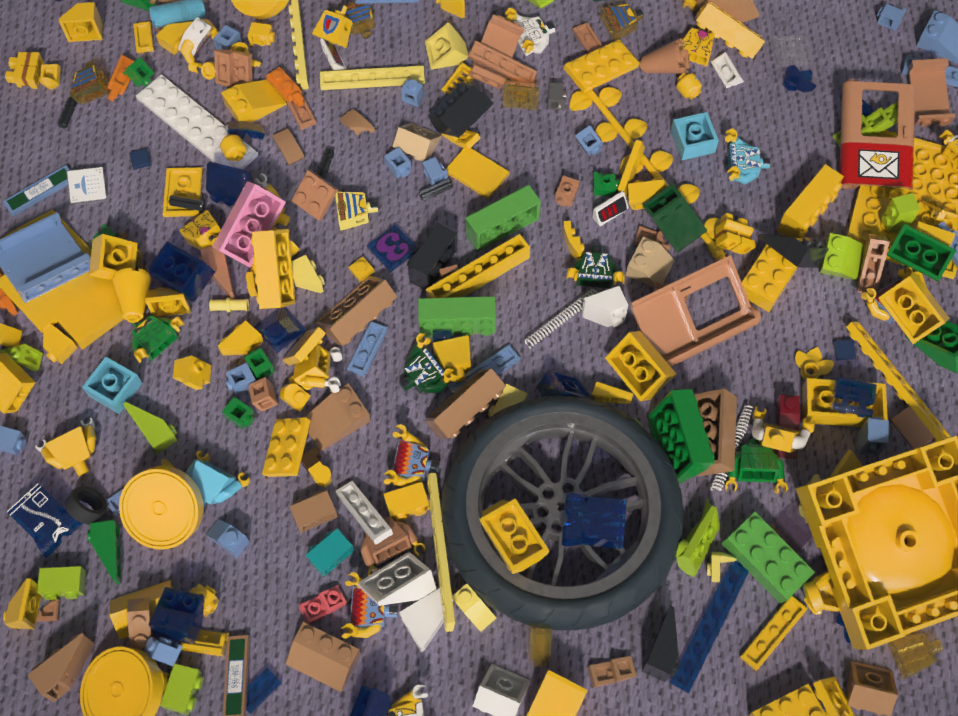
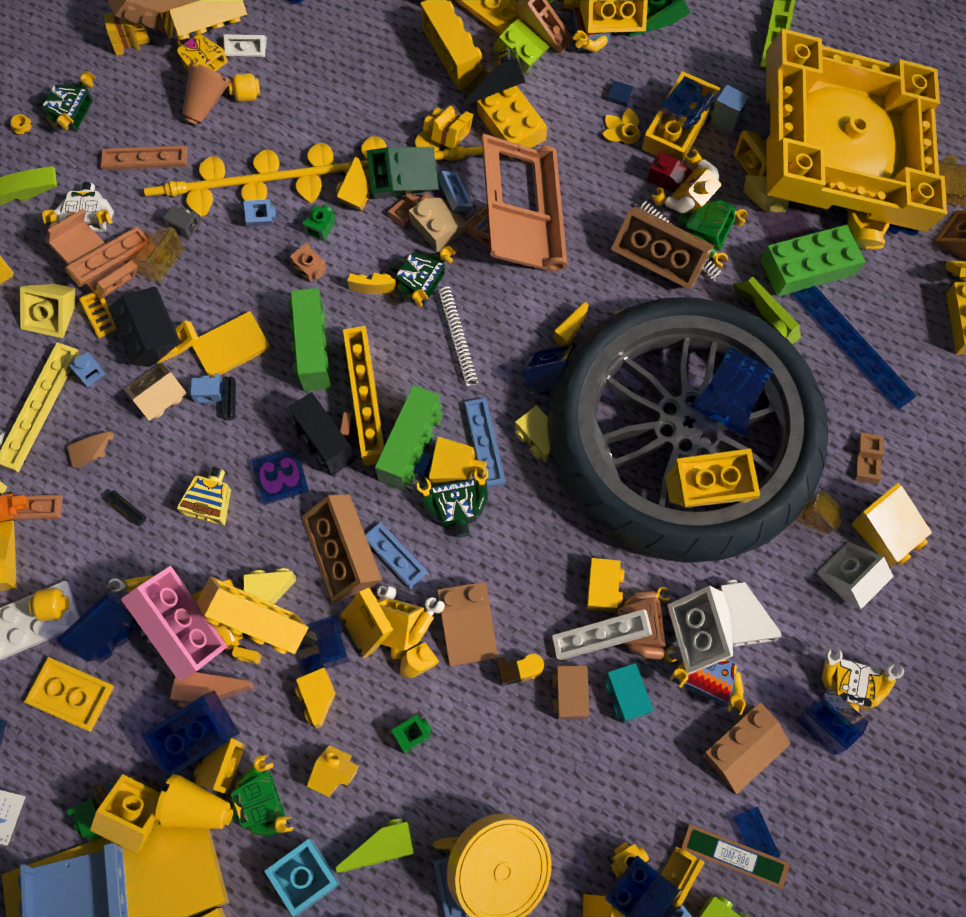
camera: 65 degrees left, 5 degrees up
(187, 203) = (91, 693): black axle -> none
(201, 231) = (145, 687): yellow torso -> none
(212, 481) = (487, 795): medium azure torso -> none
(228, 537) = (560, 805): medium blue slope -> none
(229, 304) = (259, 693): light yellow pin -> none
(239, 373) = (361, 708): medium blue brick -> none
(241, 128) = (24, 583): slope -> none
(258, 357) = (365, 678): green brick -> none
(262, 394) = (408, 699): nougat brick -> none
(286, 447) = (480, 693): yellow plate -> none
(288, 146) = (78, 541): medium nougat slope -> none
(314, 195) = (166, 534): nougat plate -> none
(324, 604) = (684, 726): coral slope -> none
(361, 269) = (289, 521): yellow plate -> none
(398, 163) = (166, 423): medium blue brick -> none
(410, 460) = (558, 561): torso -> none
(440, 551) = (684, 570): light yellow tile -> none
(465, 403) = (521, 473): medium nougat brick -> none
(473, 607) = (751, 564): light yellow slope -> none
(601, 66) = (170, 159): yellow plate -> none
(606, 307) = (476, 281): white slope -> none
(610, 208) = (353, 230): slope -> none
(620, 20) = (121, 115): clear yellow torso -> none
(631, 166) = (317, 185): yellow tile -> none
(640, 365) = (558, 280): yellow brick -> none
(664, 652) = (869, 394): black slope -> none
(682, 263) = (455, 191): none -> medium blue plate
(682, 434) = (655, 272): green slope -> none
(694, 136) = (311, 109): medium azure brick -> none
(713, 568) = (801, 313): light yellow plate -> none
(743, 159) = (364, 79): torso -> none
(773, 633) = (886, 295): yellow tile -> none
(894, 378) = (689, 64): yellow plate -> none
(912, 428) = (732, 74): nougat slope -> none

